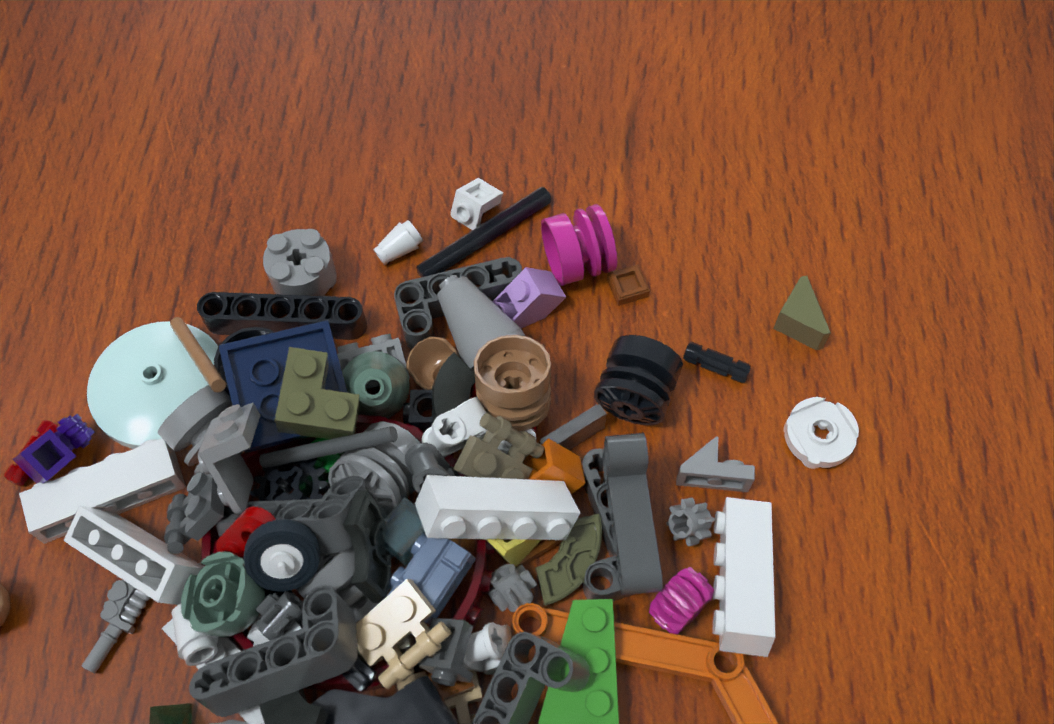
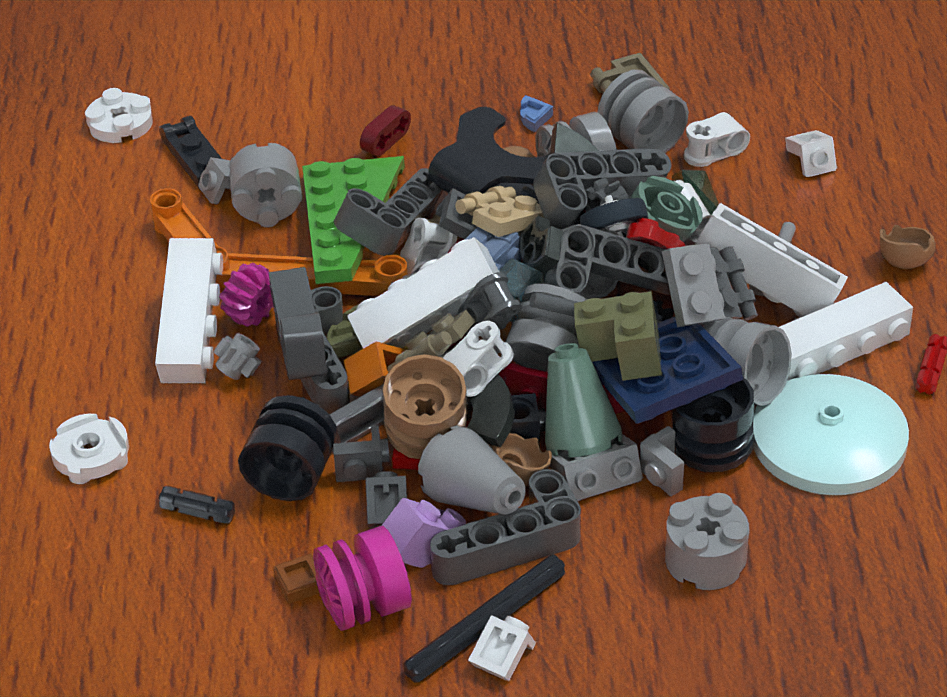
camera: 175 degrees right, 20 degrees down
(53, 450) = (906, 339): dark purple brick -> none
(198, 355) = (782, 411): medium nougat bar -> none
(269, 307) = (757, 491): black beam -> none
(399, 242) = (591, 591): white cone -> none
(556, 339) = (383, 495): none -> dark grey bracket
(572, 384) = (360, 459): none -> dark grey bracket
(705, 471) = (215, 398): light grey slope -> none
(802, 317) = (95, 549): olive slope -> none

